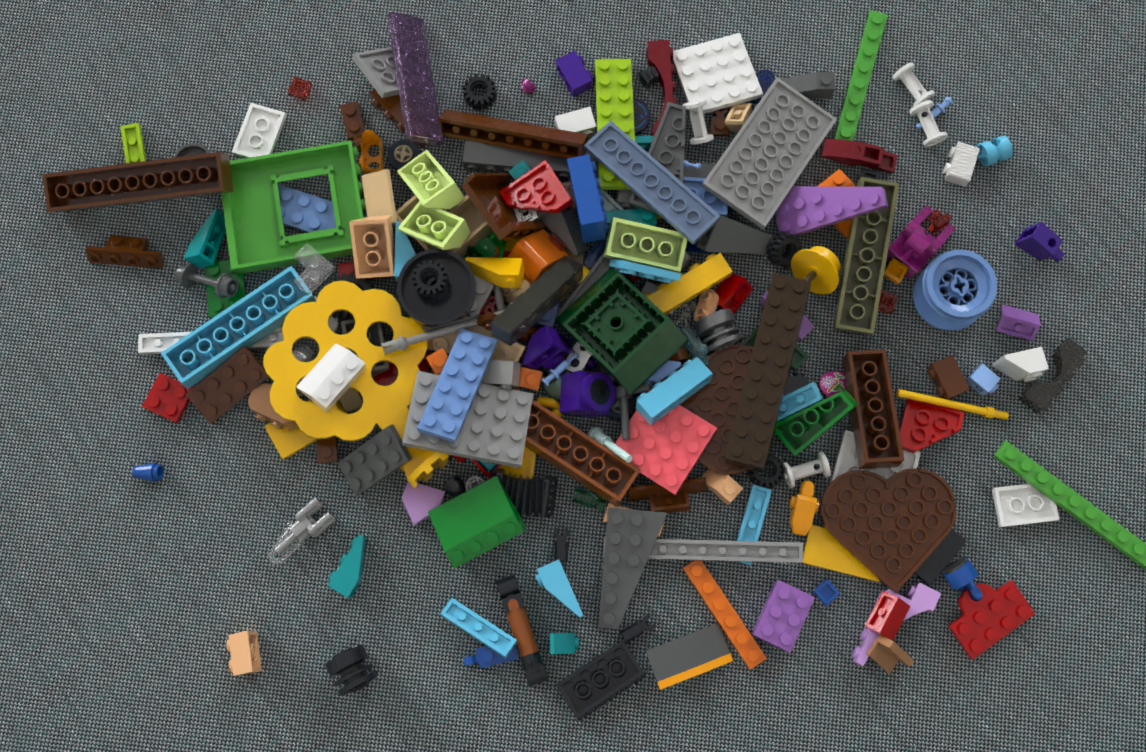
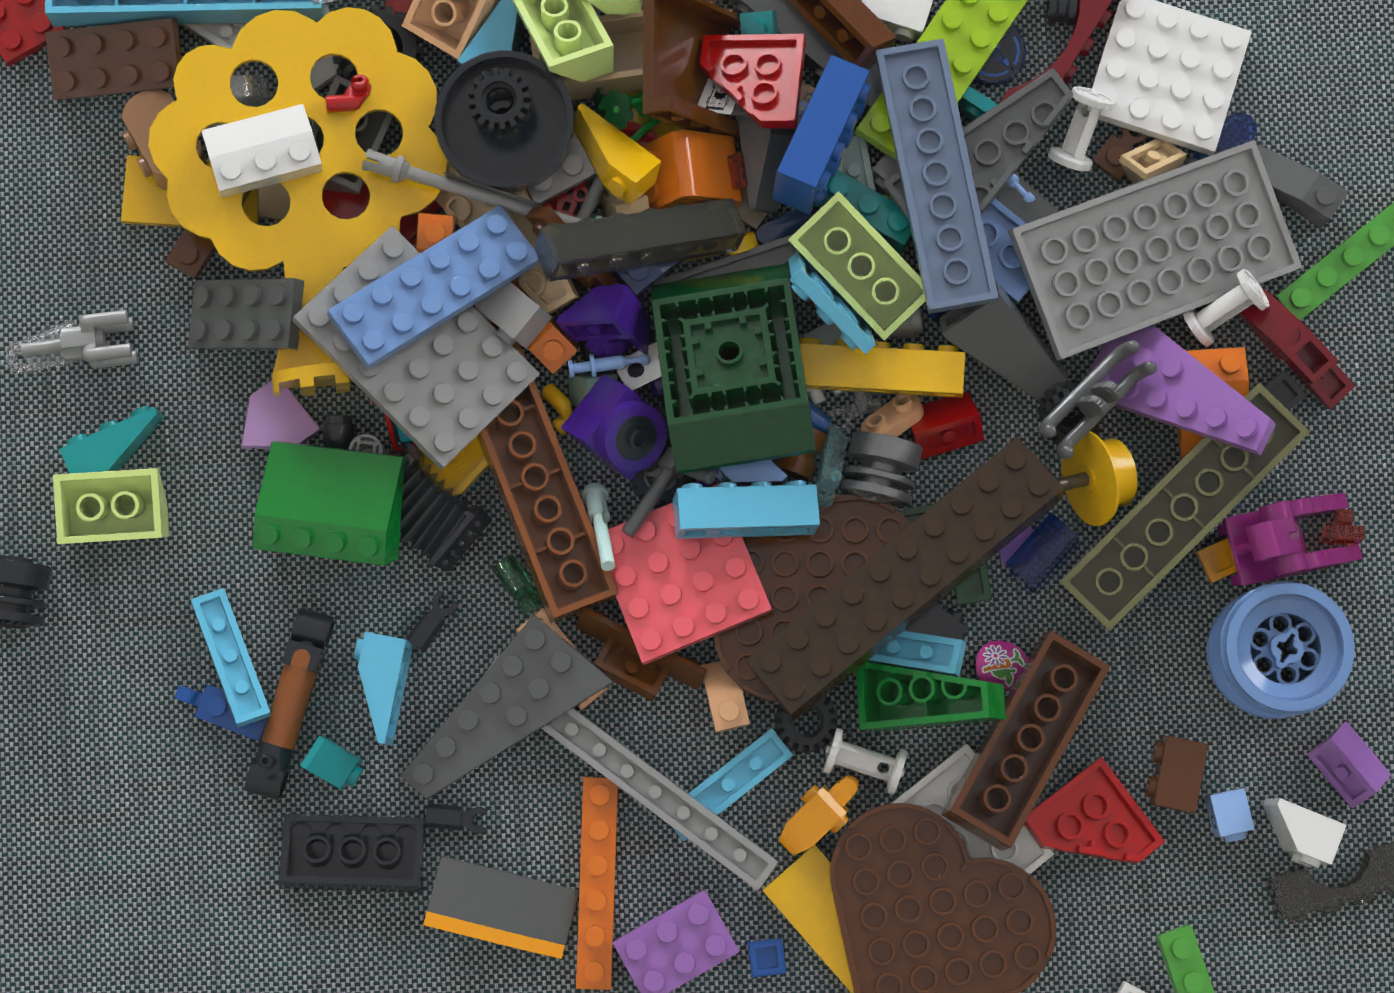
camera: 35 degrees right, 5 degrees up
(357, 325) = (353, 97): none -> red arm
(371, 595) = (110, 506): none -> yellowish green slope
(793, 233) = (1095, 397): none -> dark grey piece
(816, 320) = (1042, 552): none -> clear blue hinge
(818, 157) = (1226, 307): none -> white hose
(887, 302) = (1171, 596): clear red tile -> none
(987, 412) = (1200, 864): yellow bar -> none

